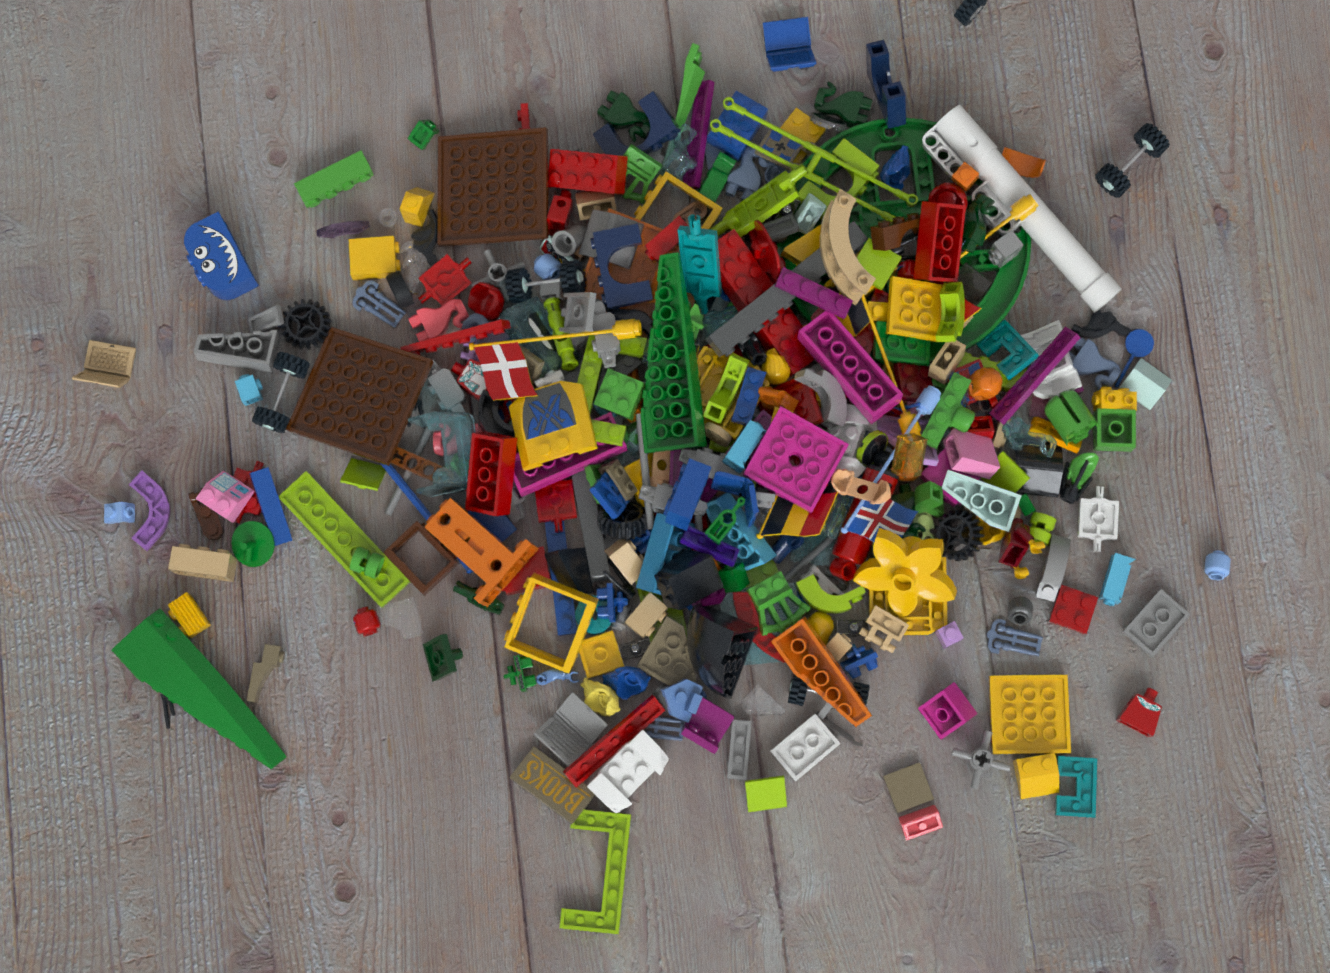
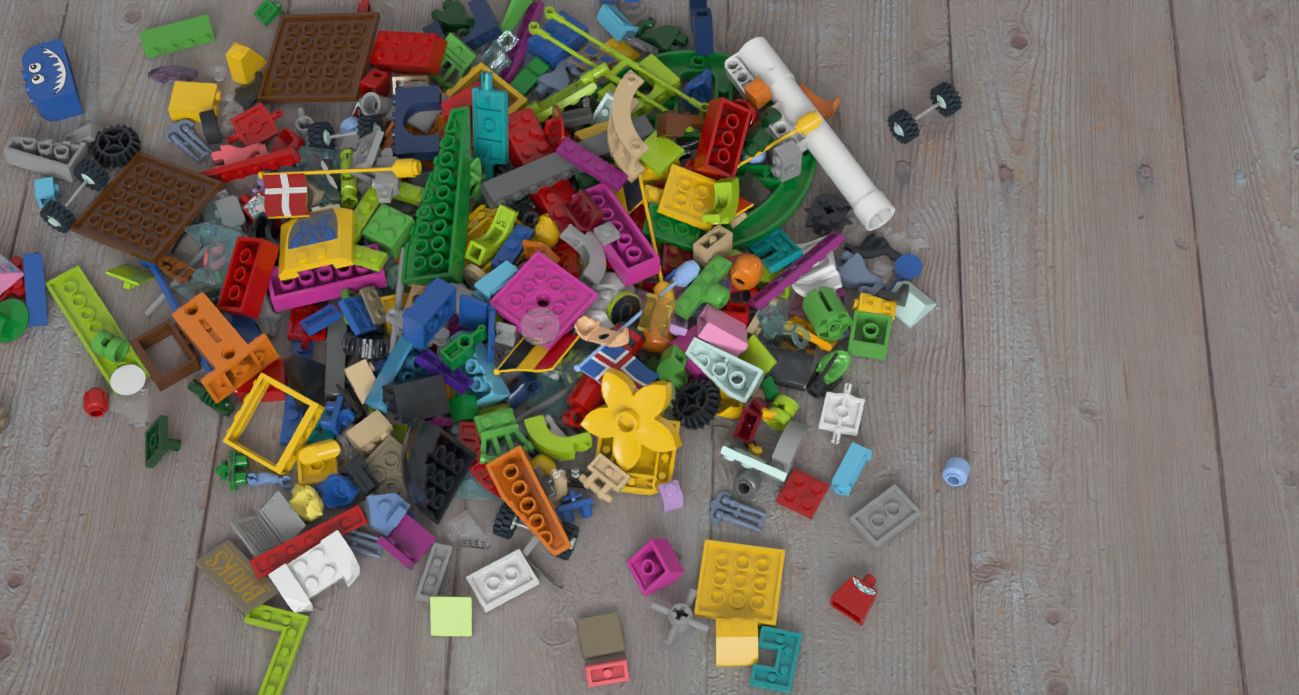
camera: 10 degrees right, 20 degrees down
(391, 592) = (127, 379): none -> white sticker
(569, 500) = (320, 319): none -> blue plate
(601, 643) = (318, 452): none -> yellow arm
(647, 661) = (359, 471): none -> black piece
(794, 96) = (615, 22): none -> medium azure window
(810, 491) = (539, 318): none -> clear plate
(817, 353) = (583, 211): none -> dark red bracket
(834, 648) = (547, 481): none -> piece
(844, 374) = (606, 233): none -> light grey plate
(1018, 586) = (750, 461): none -> light aqua wing
(1043, 303) = (828, 214): none -> black brick
(1134, 387) = (899, 297): none -> pearl dark grey tile

